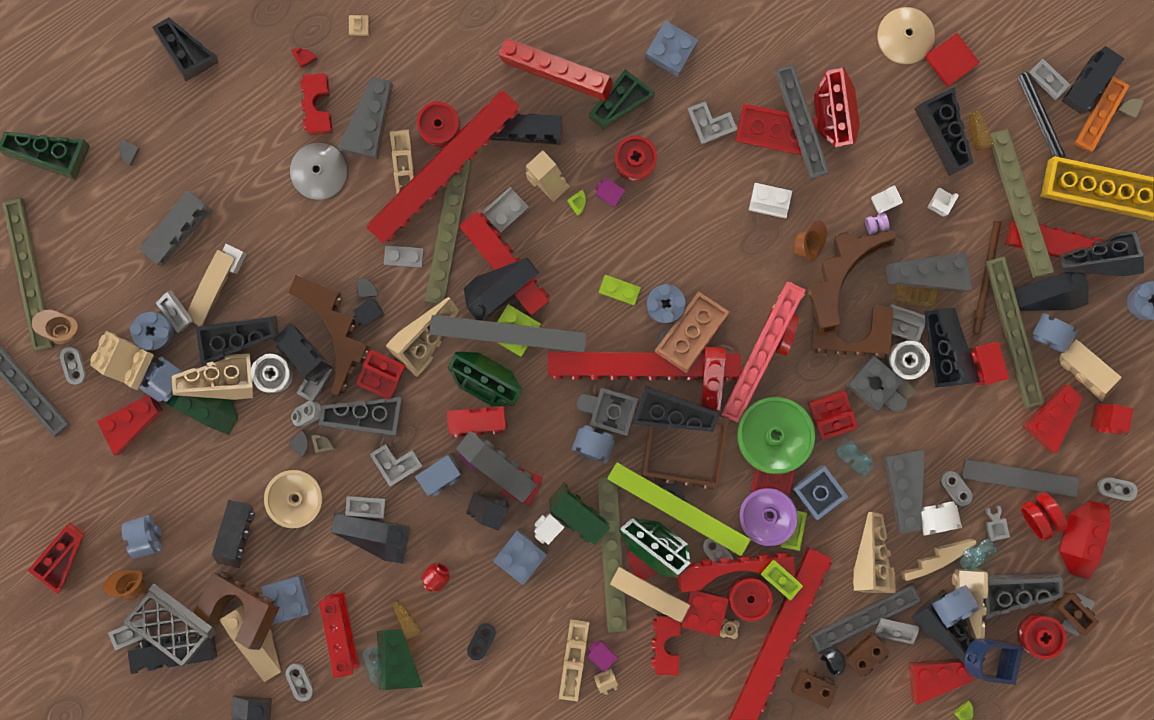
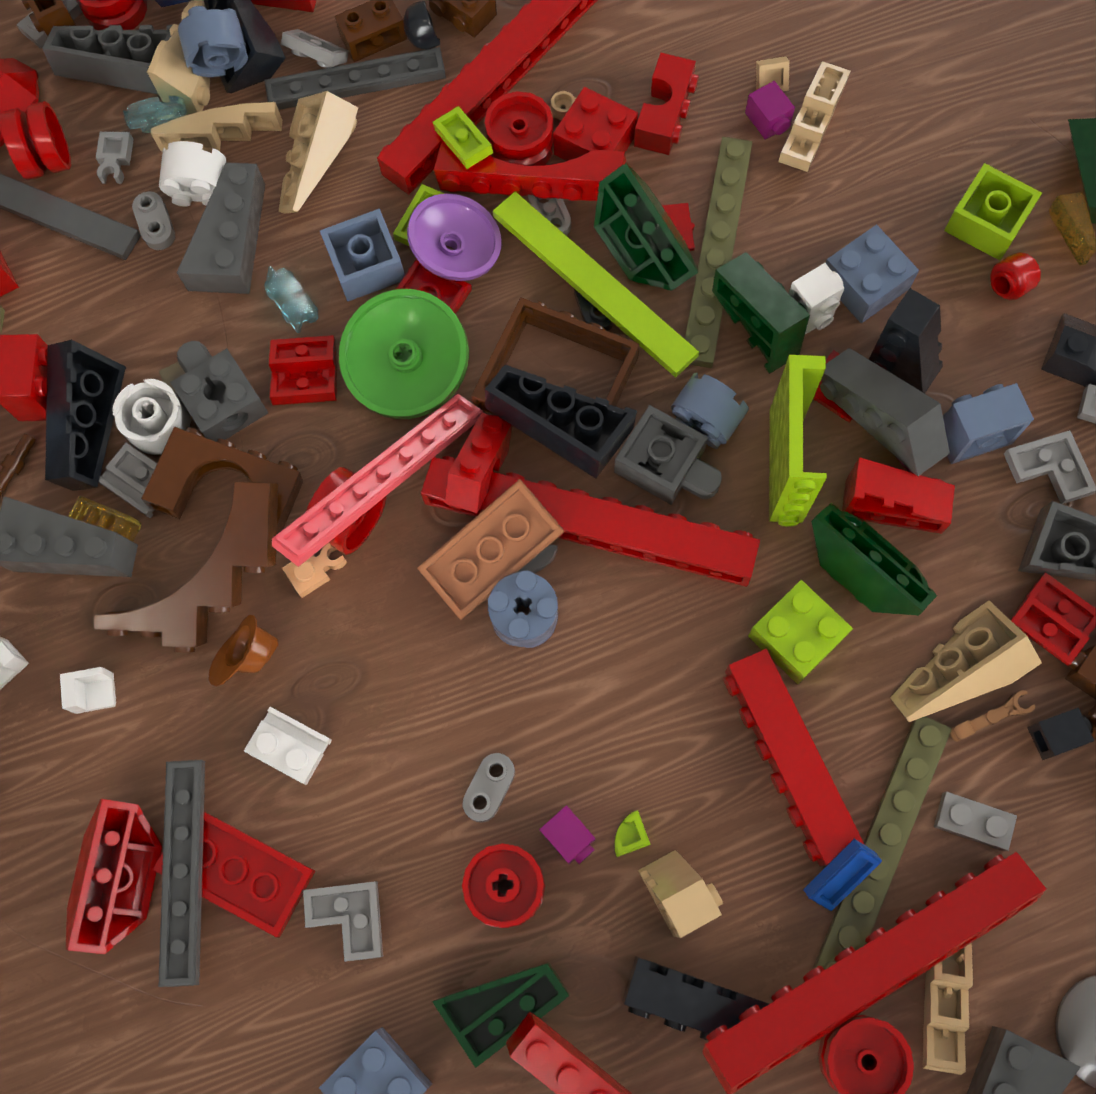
camera: 160 degrees left, 15 degrees down
(366, 288) = (1056, 780): dark grey tile -> none
(417, 302) = (991, 717): none -> medium nougat piece
(456, 614) = (992, 211): none -> lime brick
(467, 209) = (842, 875): none -> blue tile
(481, 641) = (955, 173): black plate -> none
(491, 290) = (826, 710): black wedge -> none
(505, 210) = (767, 858): light grey plate -> none
(507, 333) = (821, 621): dark grey tile -> none
(552, 457) = (790, 488): none -> lime panel
(619, 290) = (596, 659): lime plate -> none
(650, 594) = (675, 166): tan slope -> none
(657, 206) = (489, 787): none -> light grey plate
(877, 224) = (119, 652): lavender wheel -> none

